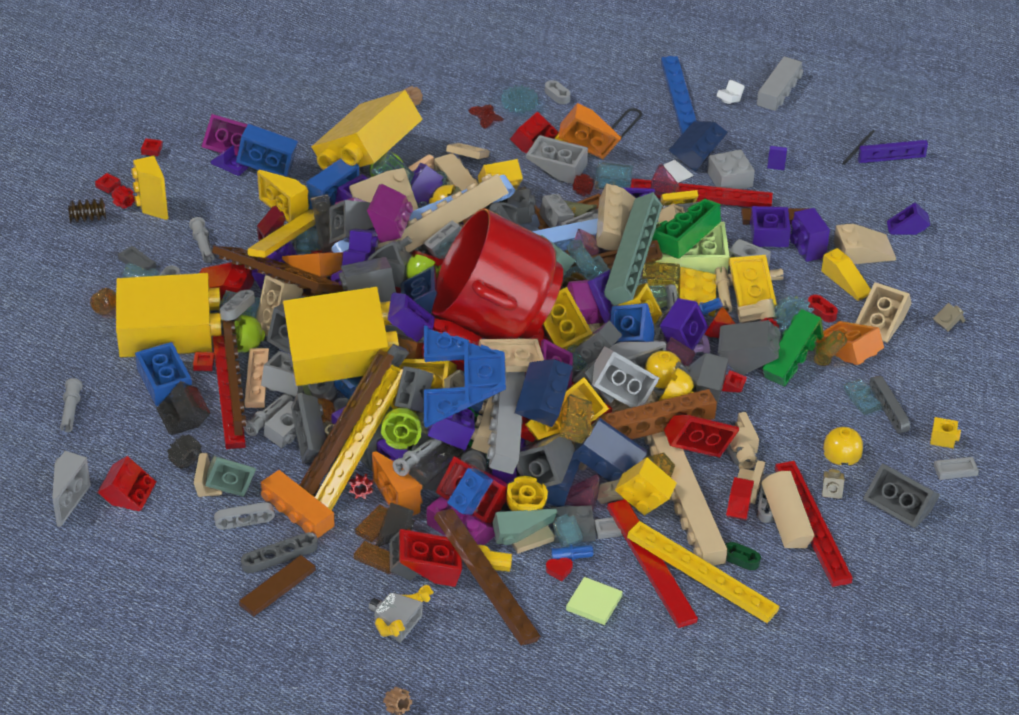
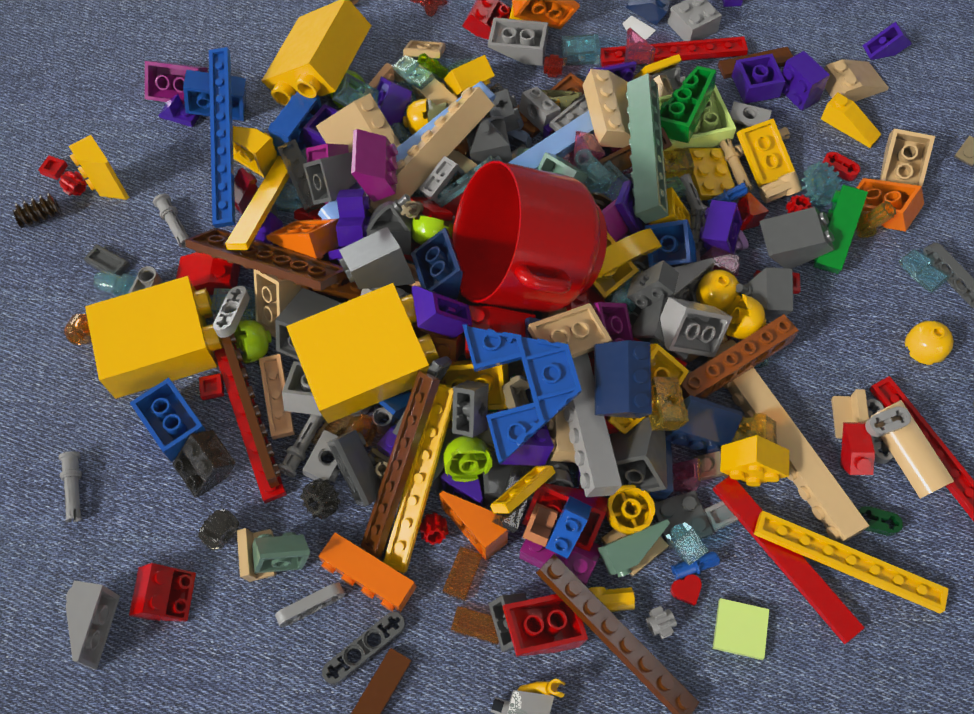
camera: 10 degrees left, 20 degrees up
(151, 147) = (91, 111): red plate -> none
(264, 179) = (221, 138): none -> blue plate
(273, 447) = (320, 498): none -> clear smoke gear
(395, 518) = (487, 578): clear smoke slope -> none
(410, 248) = (412, 209): none -> dark tan axle
(412, 458) = (490, 494): light grey pin -> none
(440, 454) = (522, 489): none -> yellow tile
(445, 486) = (540, 524): none -> nougat panel
(449, 164) = (411, 71): none -> clear light blue slope
(465, 158) = (427, 62): none -> clear neon green pin
(528, 579) = (661, 622): none -> light grey gear
(583, 314) = (629, 249): none -> yellow slope
(699, 434) = (786, 371): red slope -> none
(745, 443) = (827, 362): tan plate -> none
(769, 479) = (886, 417): none -> light grey beam
(833, 484) = (939, 394): dark tan bracket -> none

